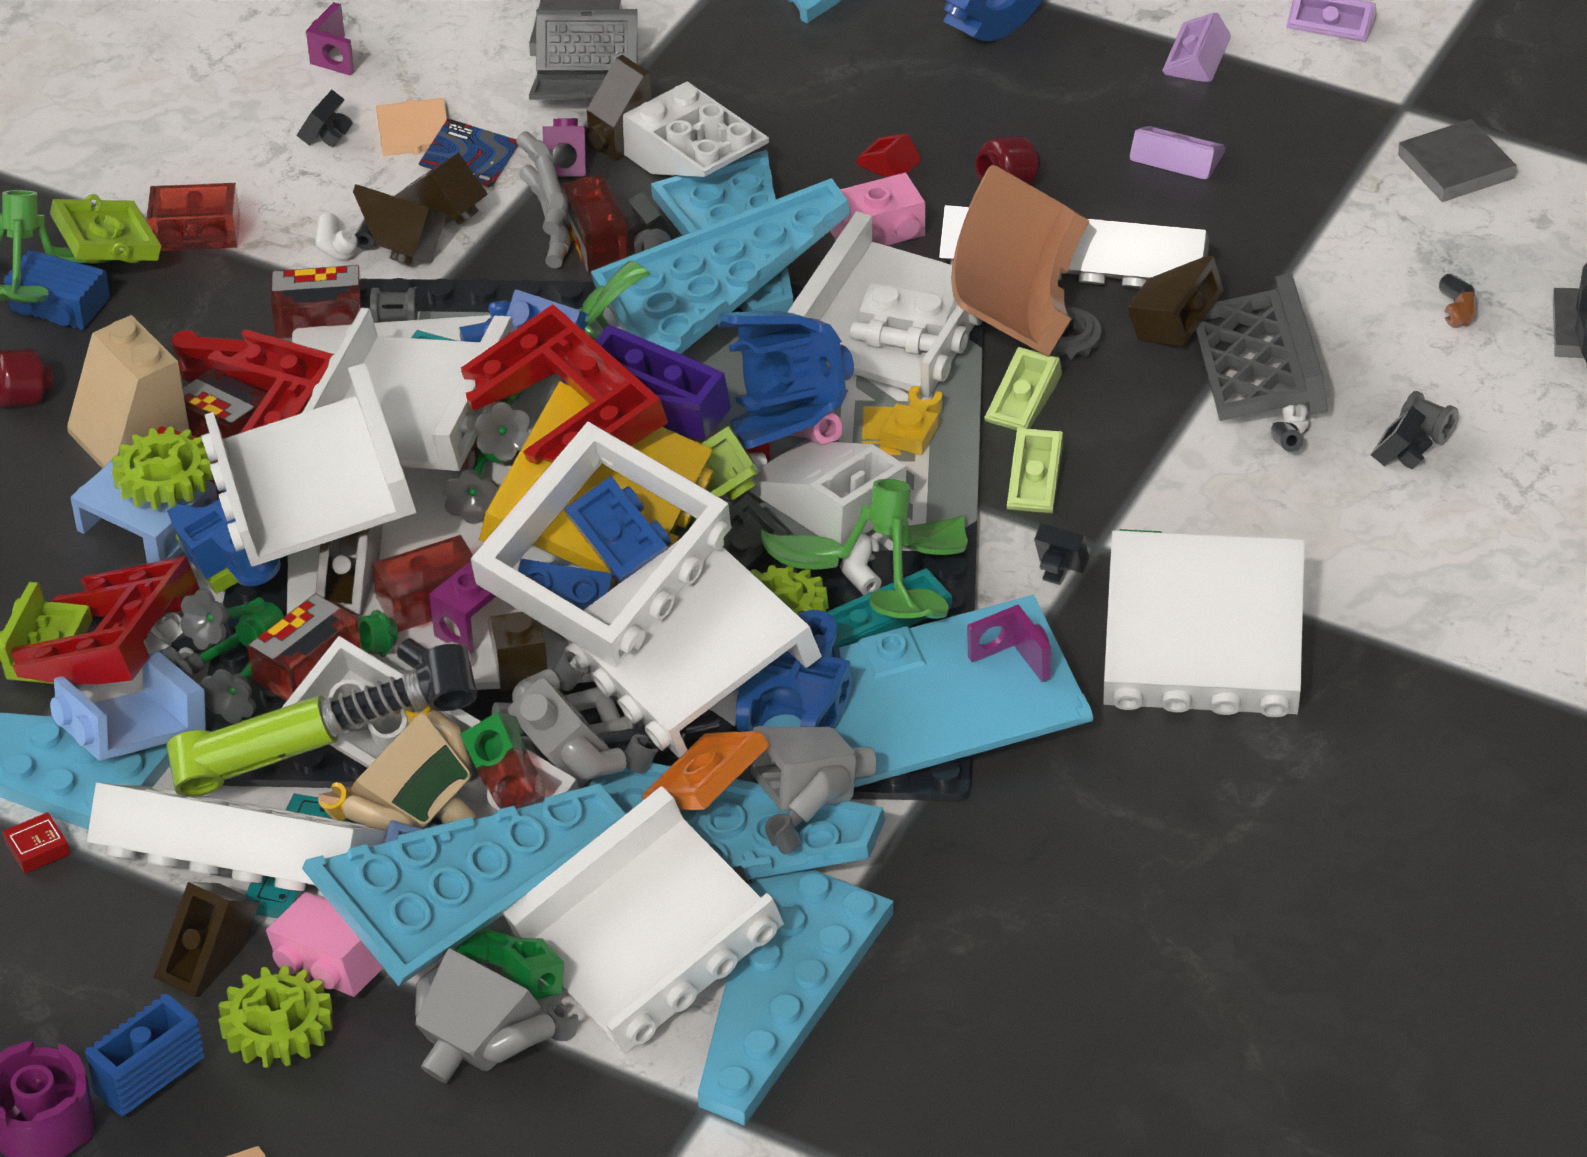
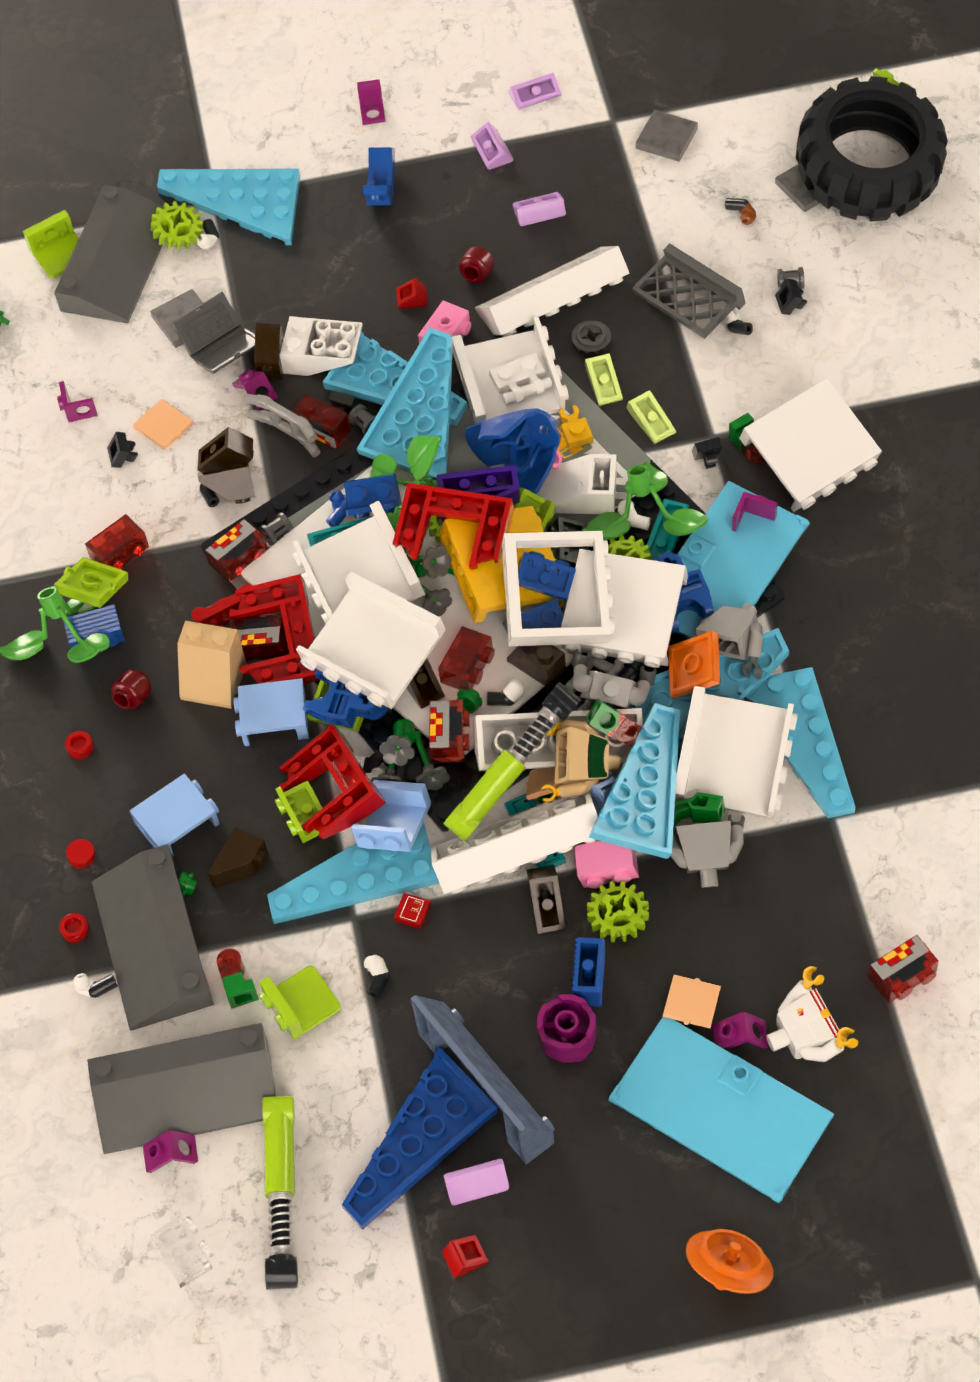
camera: 35 degrees left, 15 degrees up
(161, 468) = (279, 689): lime gear -> none
(332, 241) = (194, 513): white arm -> none
(458, 600) = (499, 658): magenta bracket -> none
(481, 149) = (207, 420): sticker -> none
(1012, 259) = (551, 317): nougat panel -> none
(1175, 302) = (629, 292): dark brown slope -> none

